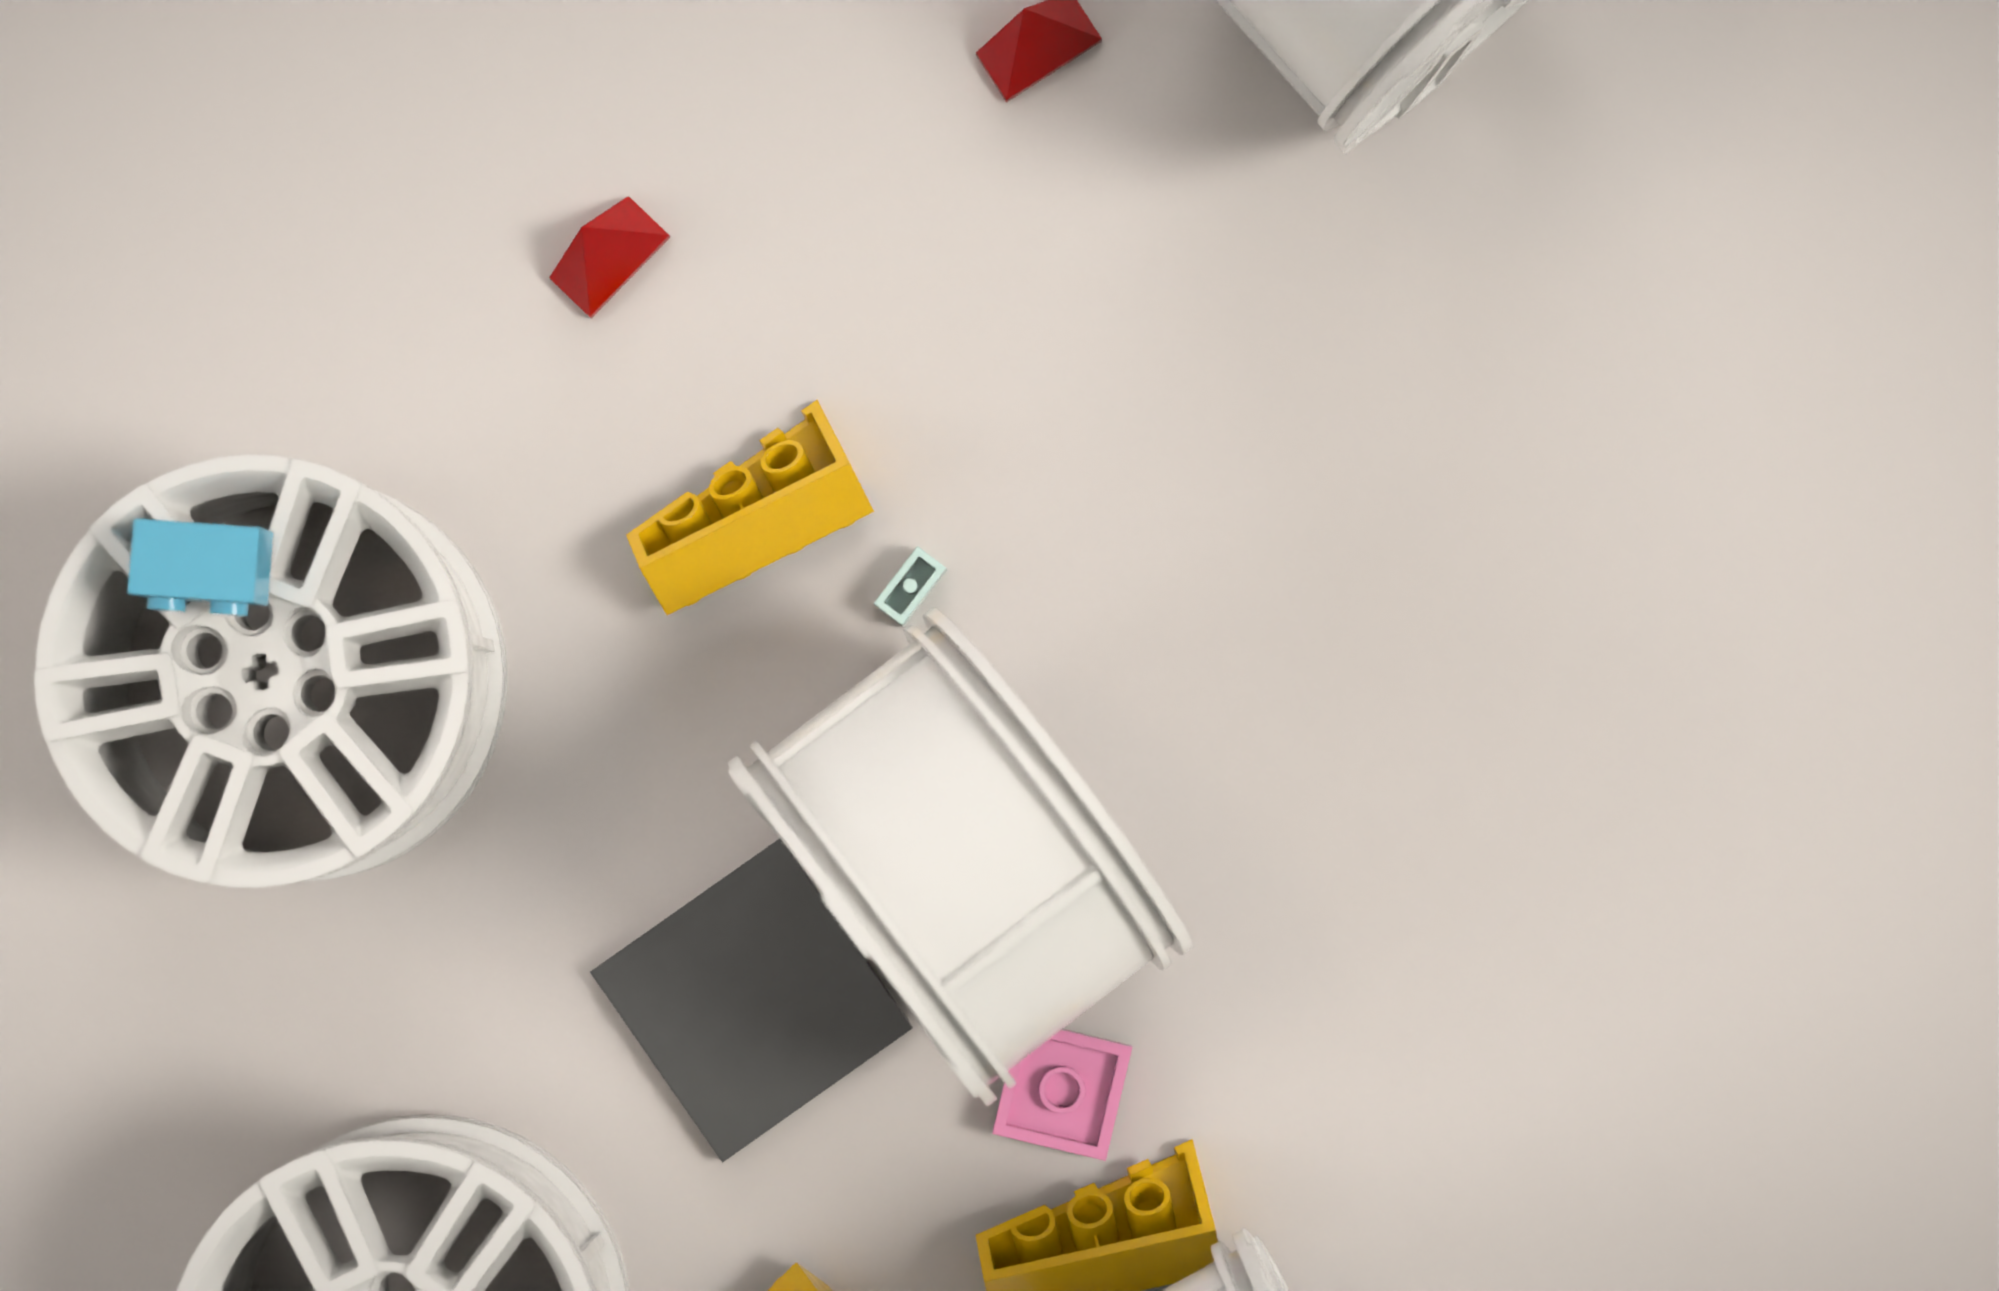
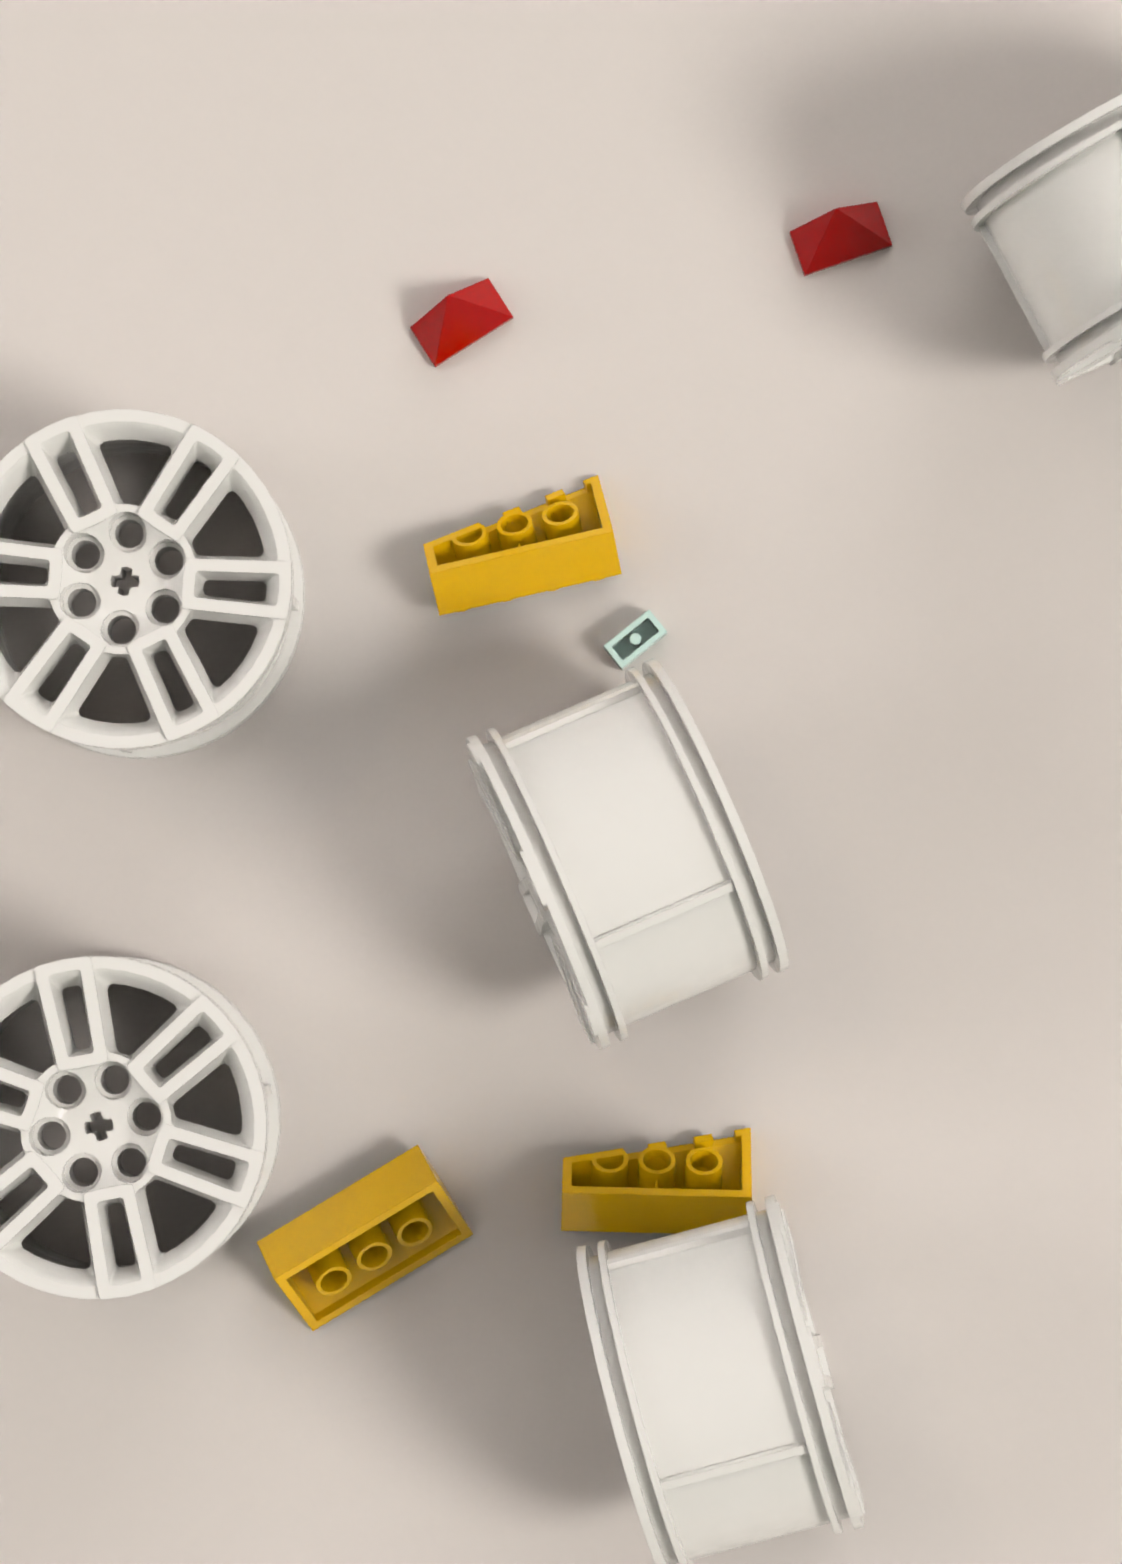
camera: 20 degrees right, 0 degrees up
(200, 563) = (105, 488): medium azure piece -> none
(751, 1000) = (431, 933): dark grey tile -> none
(1066, 1094) = (659, 1065): bright pink plate -> none

